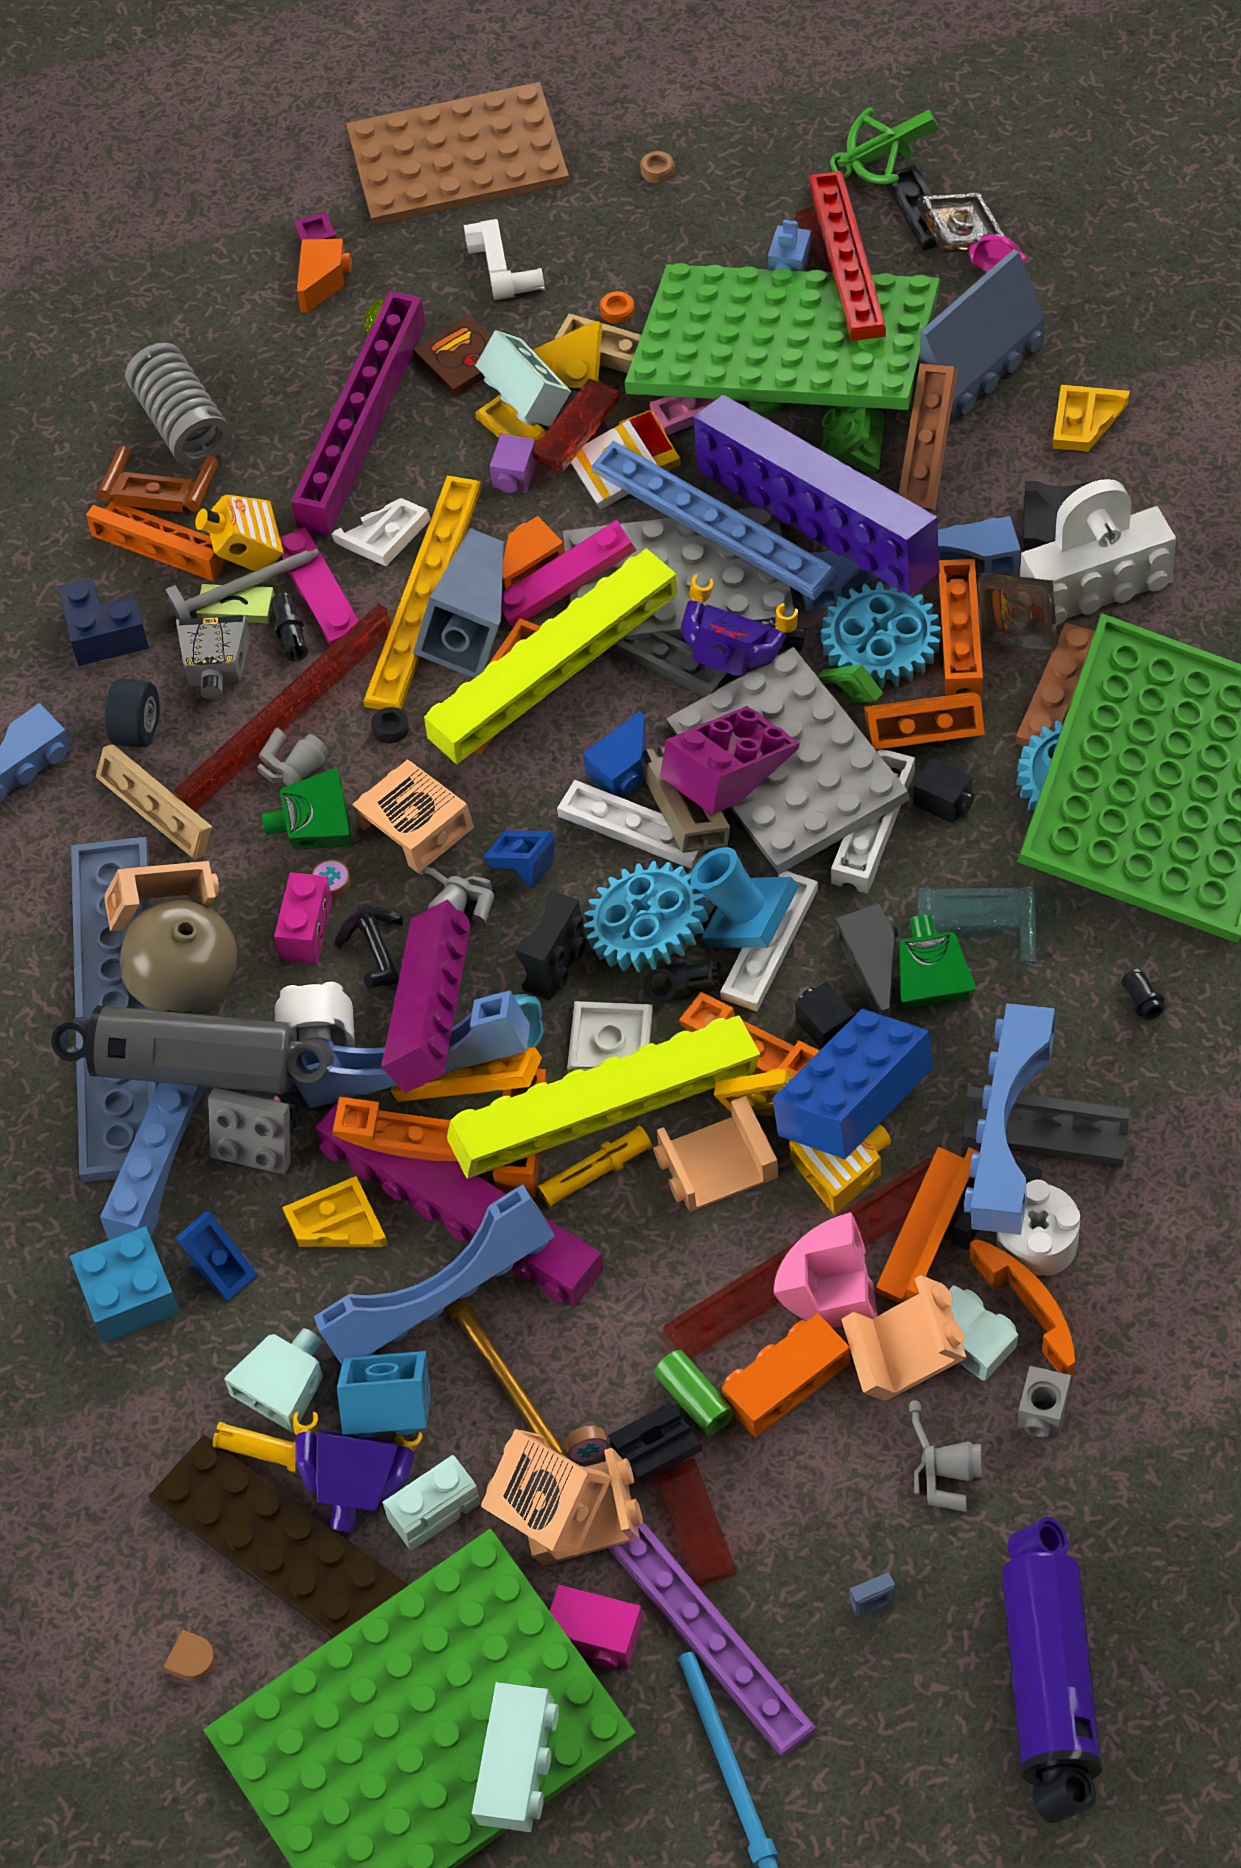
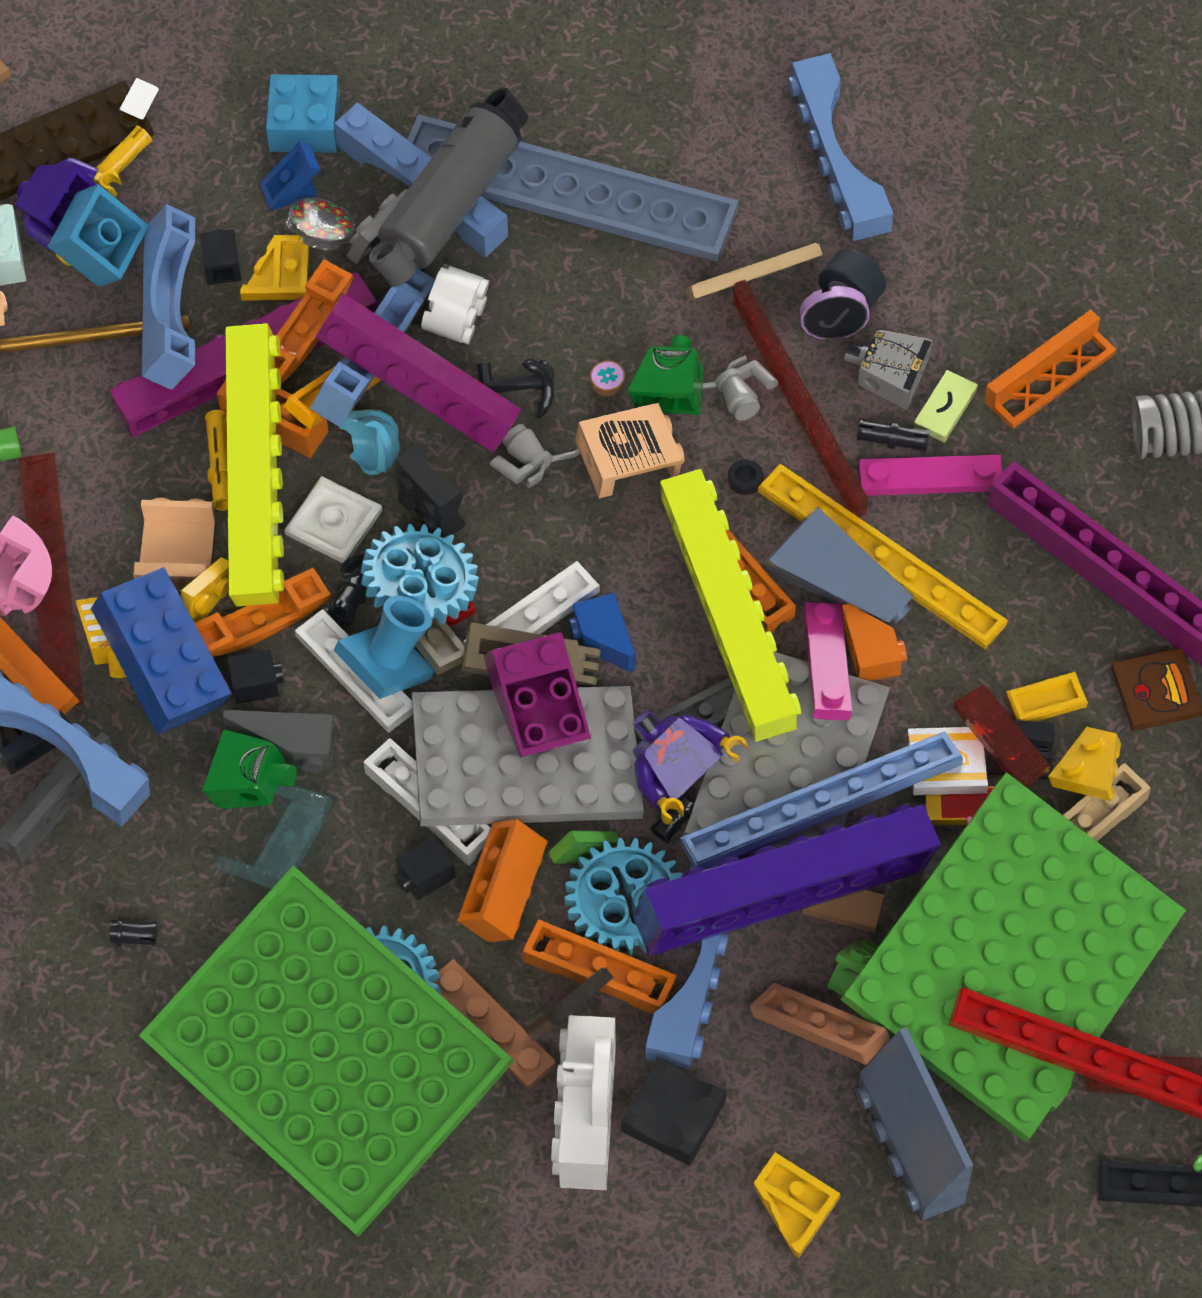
camera: 110 degrees right, 5 degrees up
(100, 629) = (967, 283): dark blue brick -> none
(152, 490) = (1108, 379): dark orange plate -> none
(156, 882) = (644, 229): light nougat panel -> none
(169, 1466) = (139, 98): none -> white sticker
(179, 706) = (834, 313): none -> black tile
(179, 957) = (583, 253): dark tan cylinder -> none
(183, 608) = (957, 358): light grey piece -> none
(242, 531) = (1010, 422): yellow torso -> none
(262, 1202) = (320, 223): none -> tile
(278, 1377) = (162, 181): light aqua torso -> none
(303, 918) = (570, 337): dark pink brick -> none
(344, 1275) = (220, 256): none -> black brick
(384, 531) = (964, 545): white wing -> none
(513, 464) = (990, 669): medium lavender brick -> none
(522, 379) = (1078, 709): light aqua brick -> none
(525, 851) = (543, 514): blue slope -> none
(617, 307) = (1154, 847): orange tile -> none
(790, 247) = (1140, 1023): medium blue brick -> none
(957, 220) = (1109, 1206): clear smoke tile -> none
(988, 255) = (1047, 1221): dark pink piece -> none

